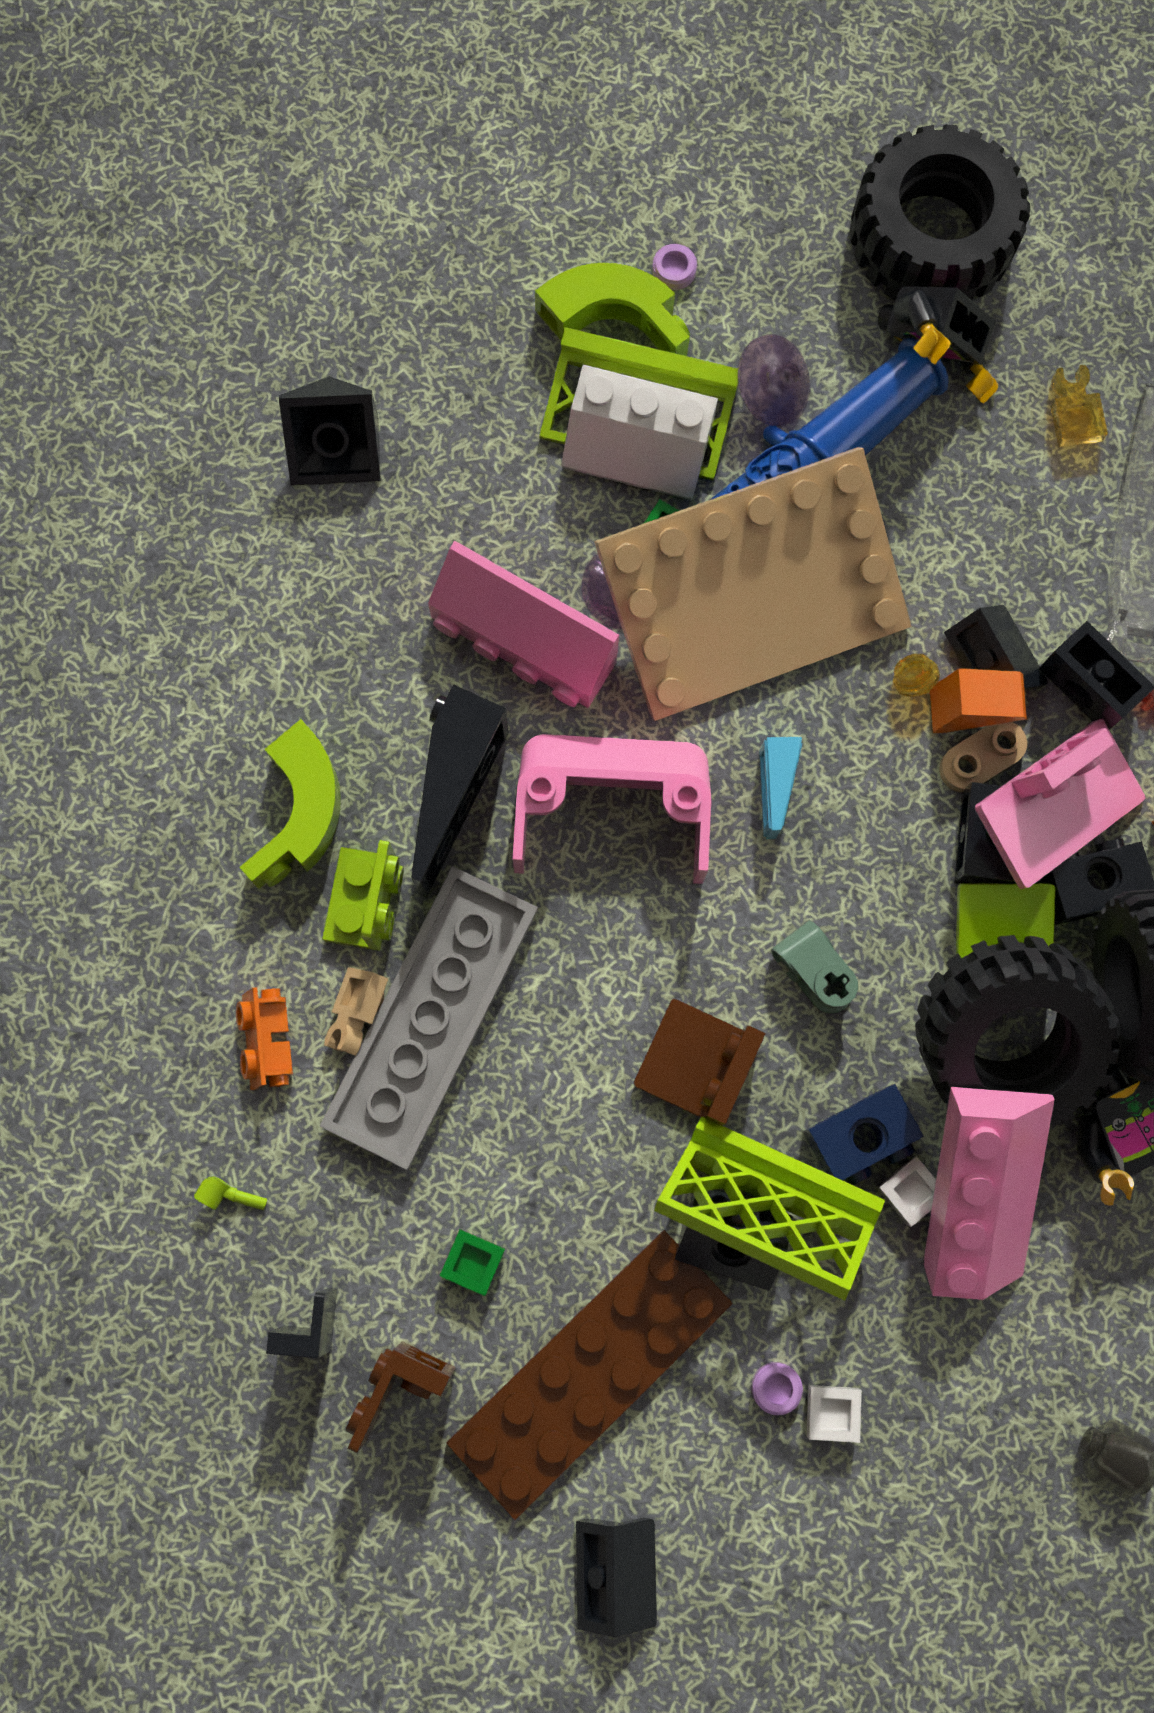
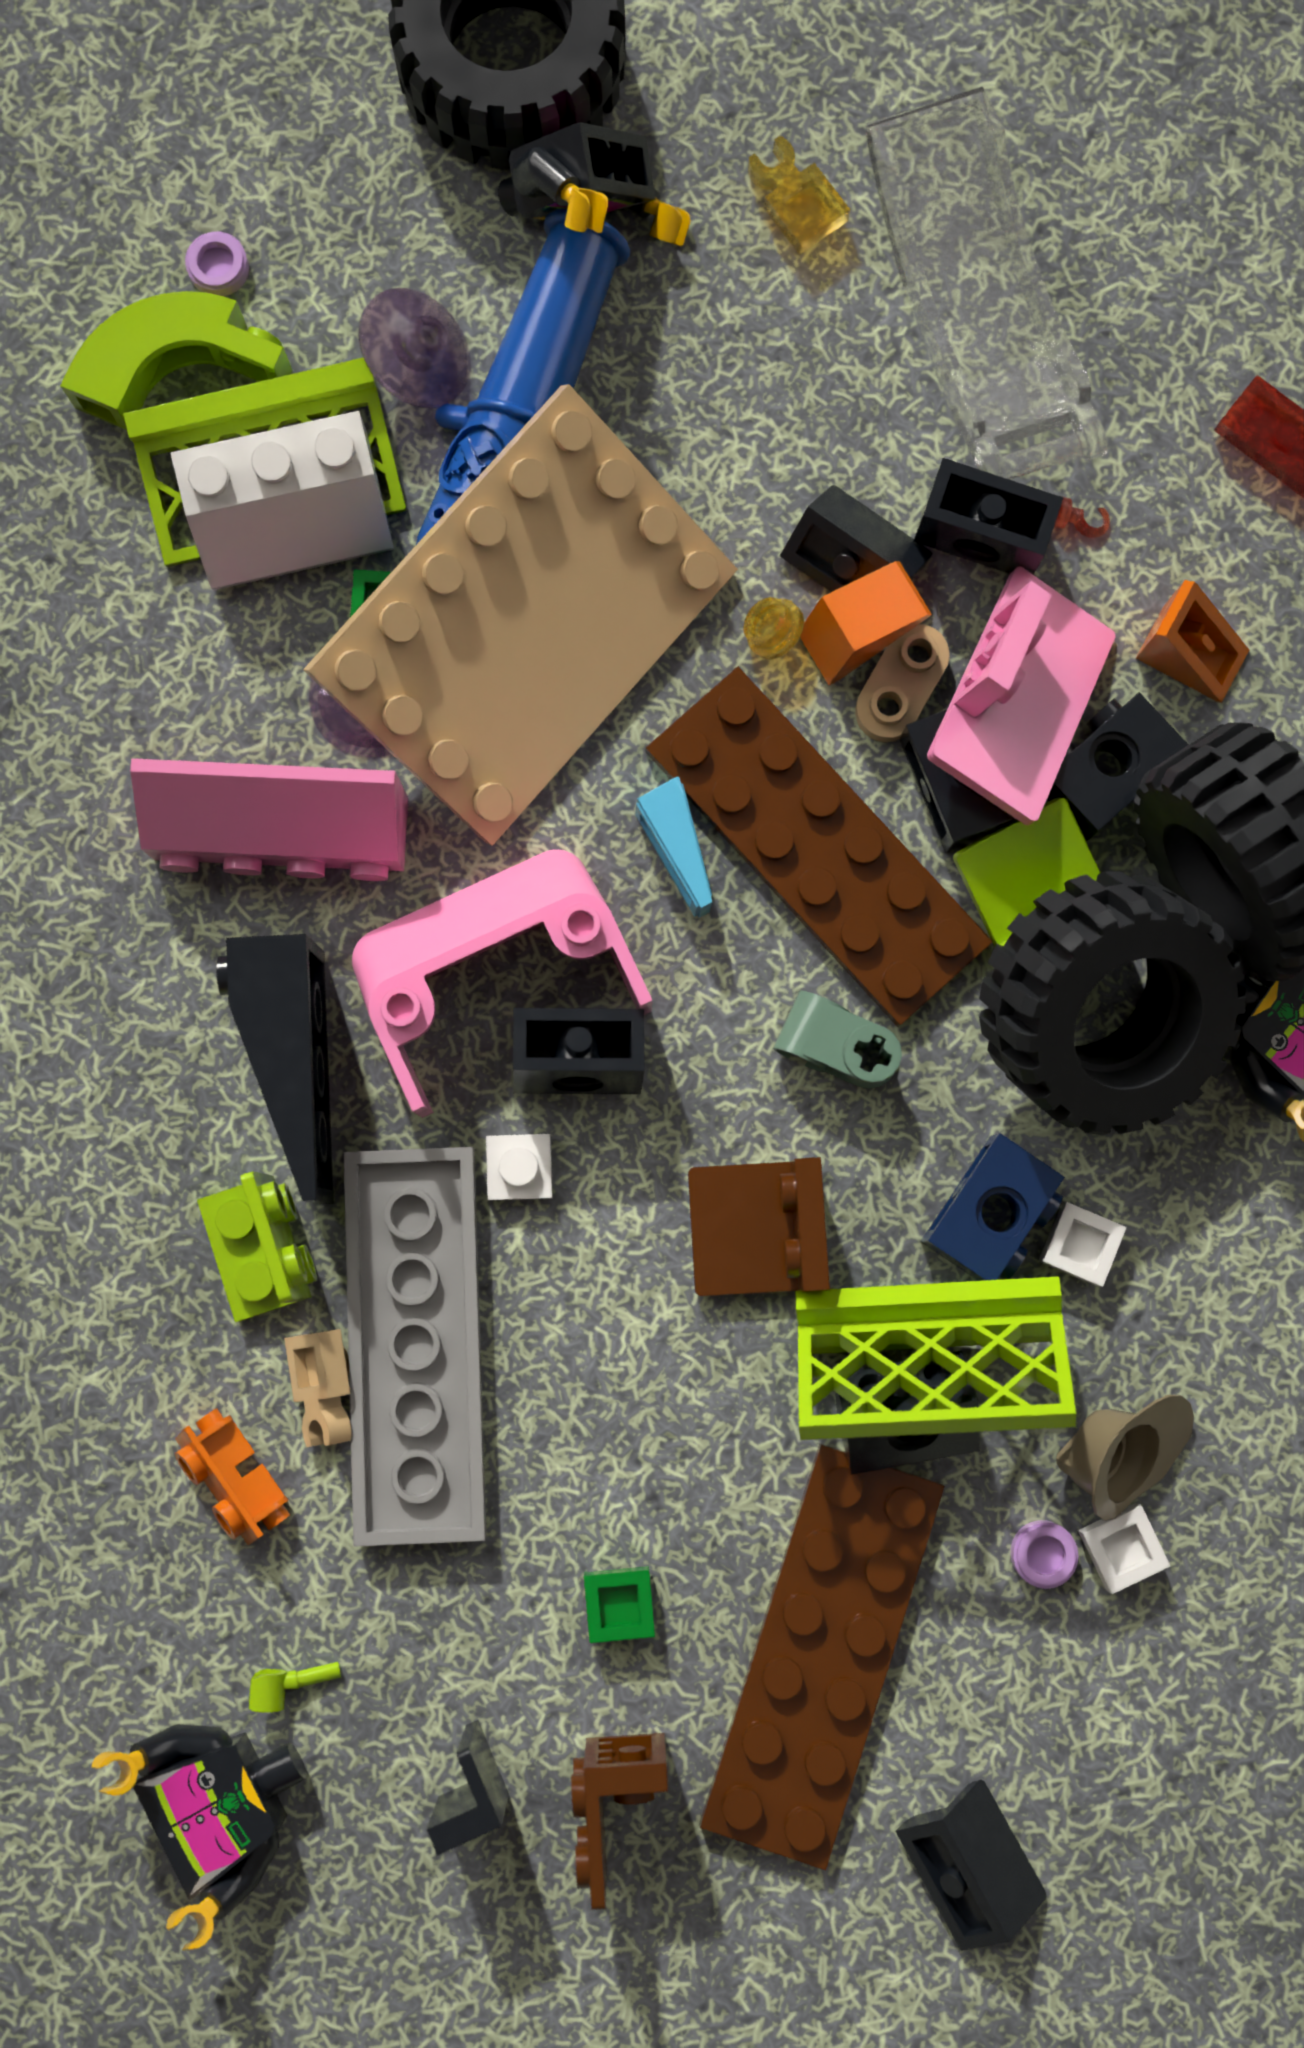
camera: 30 degrees left, 5 degrees up
(132, 1248) = (210, 1810): none -> torso
(314, 810) = (139, 1170): lime arch -> none
(561, 938) = (519, 1167): none -> white plate
(640, 880) = (578, 1051): none -> black brick
(869, 1349) = (1125, 1452): none -> dark tan piece
(871, 835) = (818, 846): none -> reddish brown plate
(985, 1190) = (1167, 1203): bright pink slope -> none

